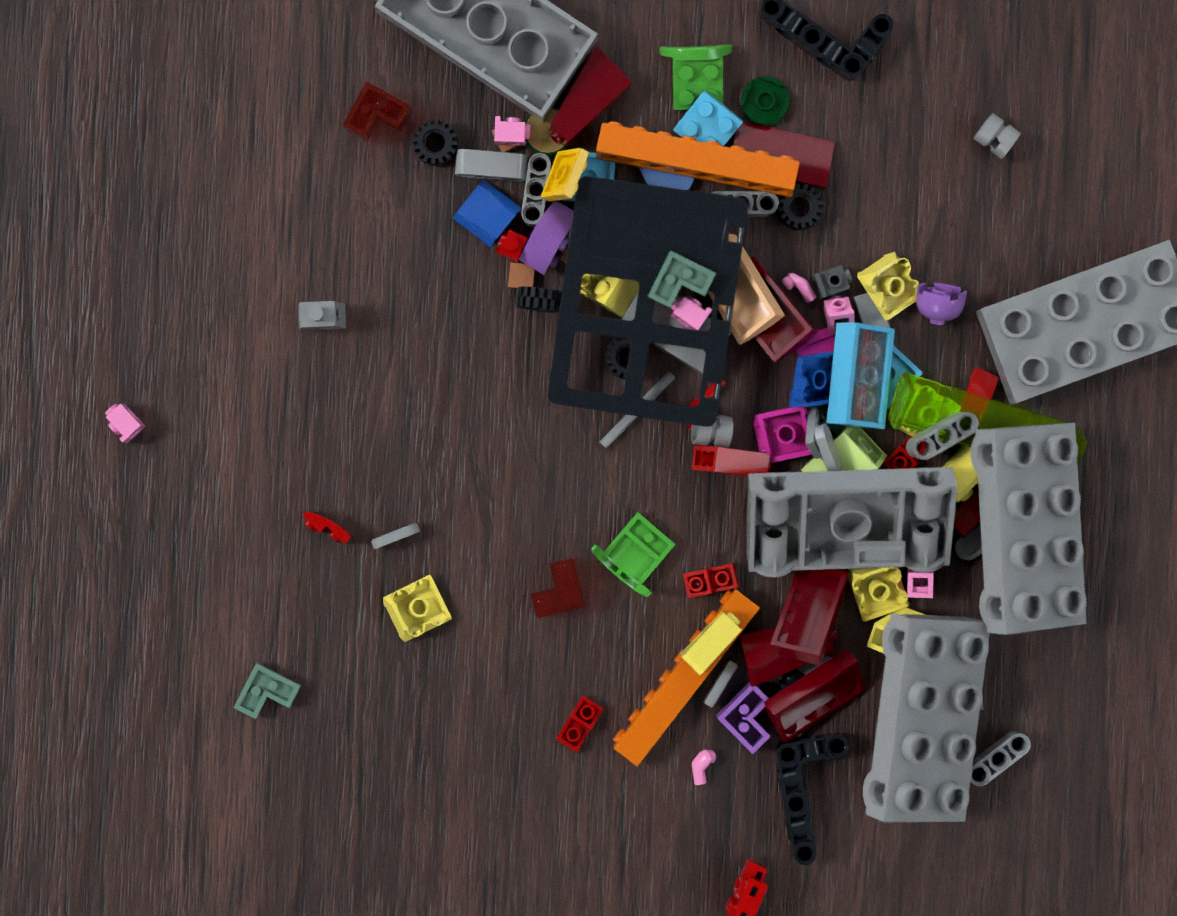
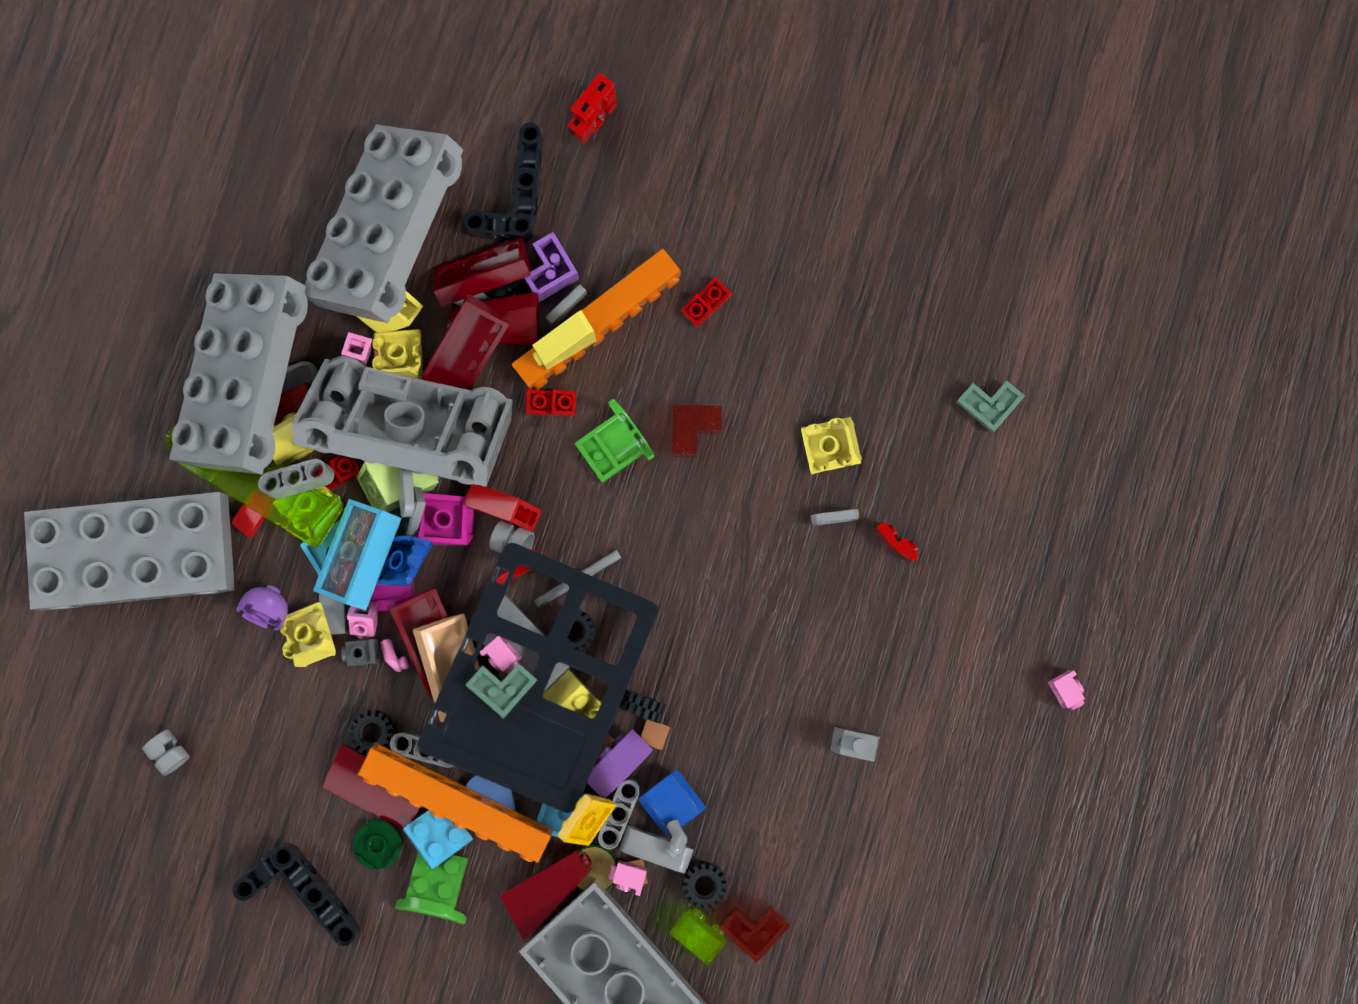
camera: 165 degrees left, 5 degrees down
(429, 94) = (697, 935): none -> clear neon green brick
(471, 178) = (677, 841): none -> light grey arm
(511, 245) = (656, 765): red brick -> none
(699, 765) = (603, 239): bright pink arm -> none
(1009, 754) = (320, 174): light grey beam -> none

